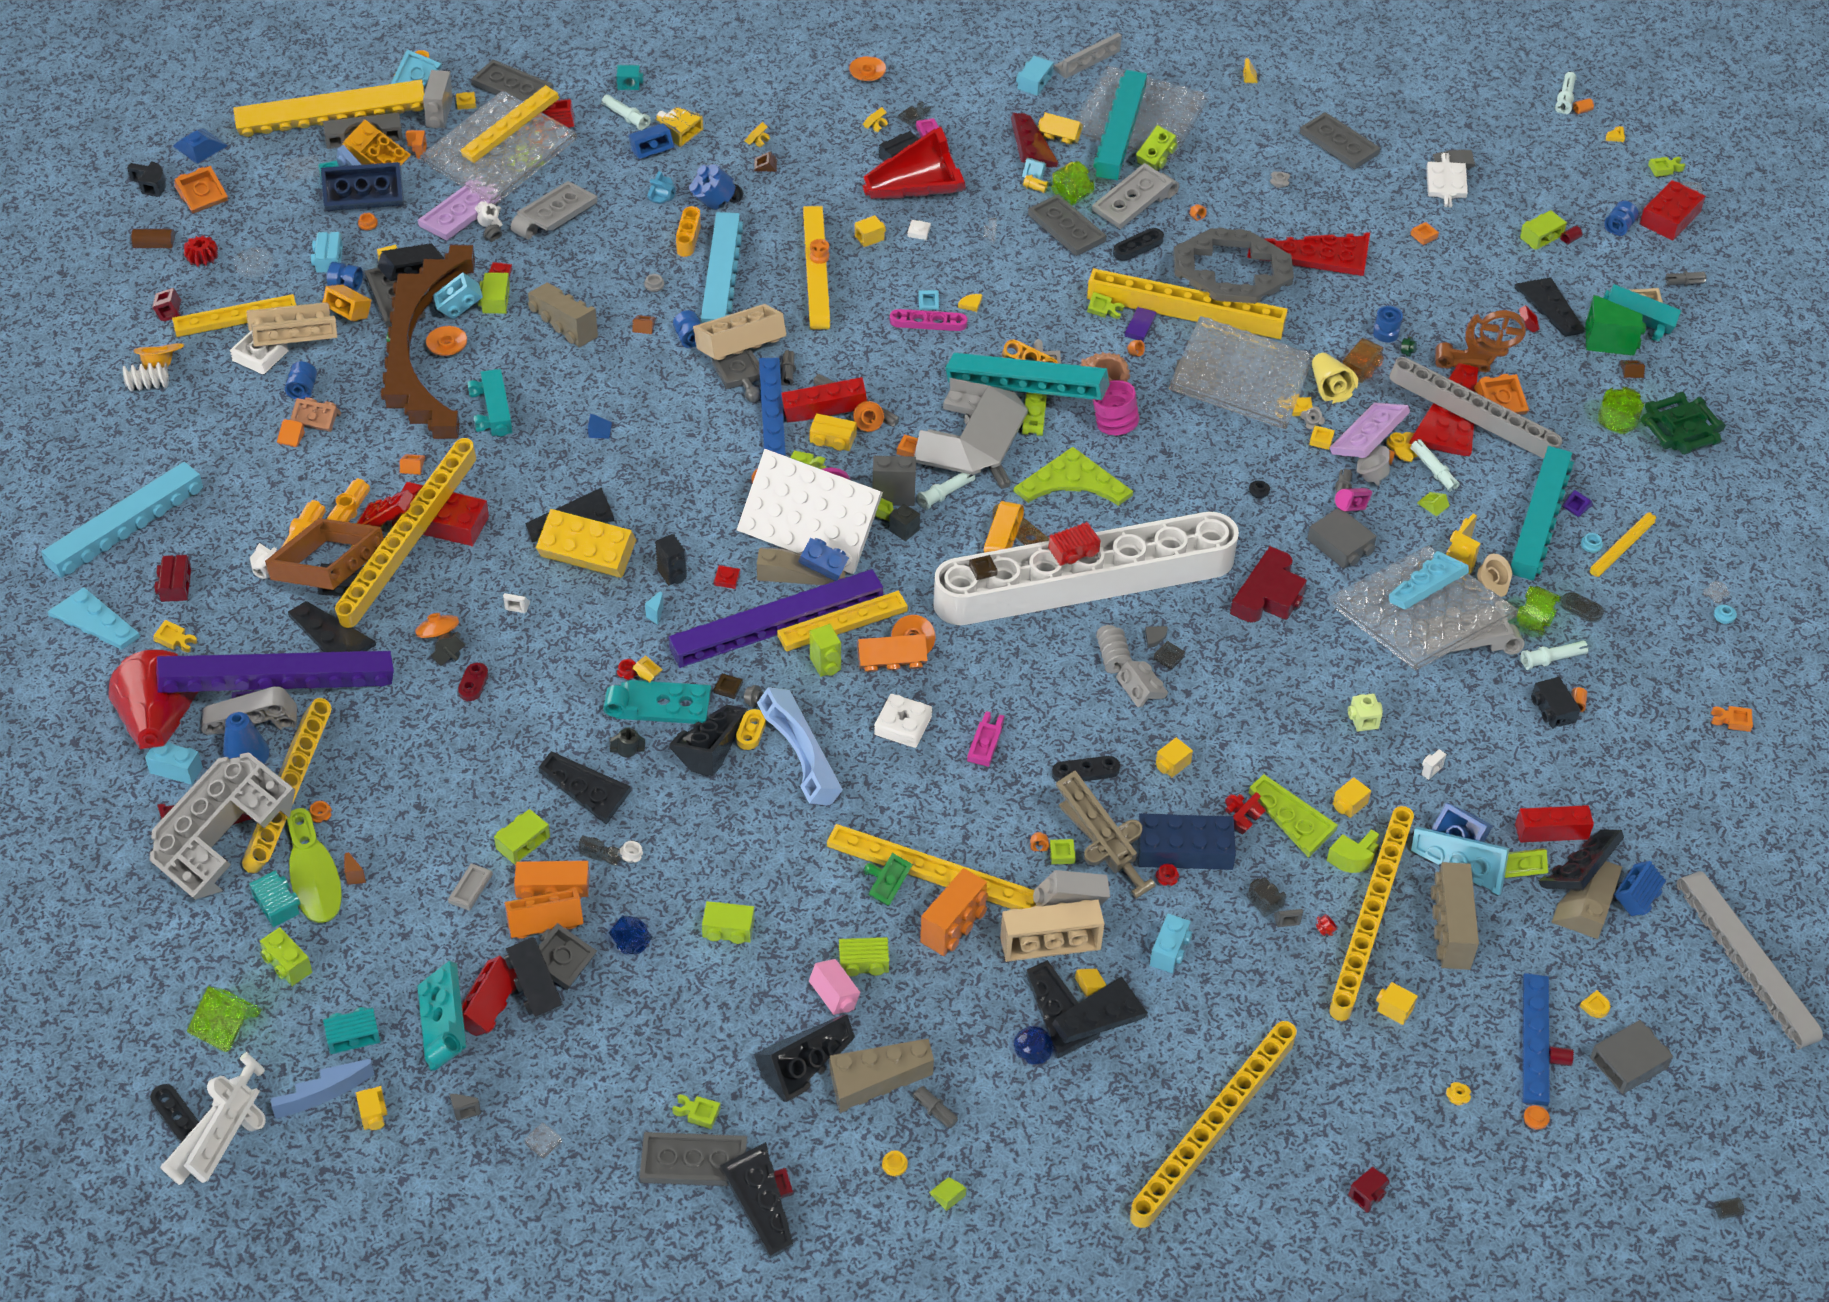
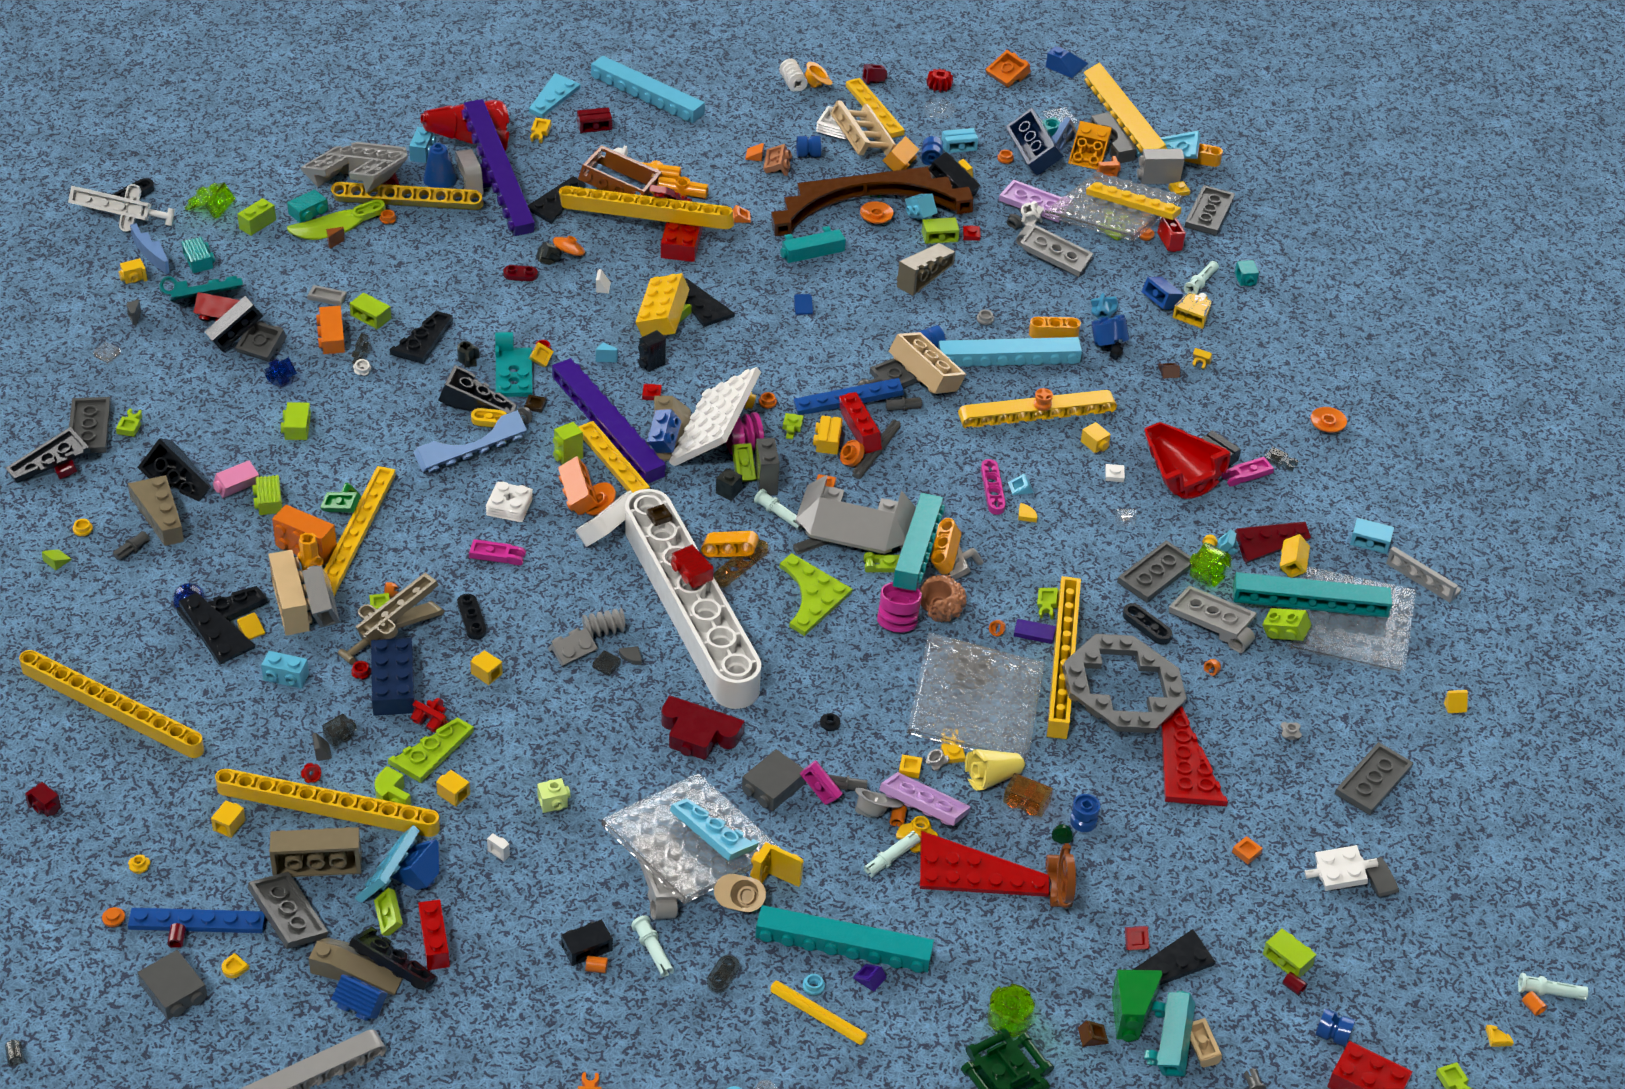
camera: 80 degrees right, 5 degrees down
(149, 177) = (1013, 44): black brick -> none
(152, 238) = (948, 57): reddish brown brick -> none
(543, 912) = (297, 326): orange brick -> none
(643, 324) = (935, 317): dark orange slope -> none
(876, 119) = (1257, 430): yellow tile -> none
(950, 622) = (604, 521): none -> white beam
(1009, 895) = (308, 553): none -> light orange piece
(1434, 502) = (843, 857): lime slope -> none
(1473, 407) = (970, 886): light grey beam -> none
(1504, 391) = (1005, 908): orange plate -> none
(1526, 950) = (287, 910): none -> dark grey plate
(1538, 610) = (698, 924): clear neon green brick -> none

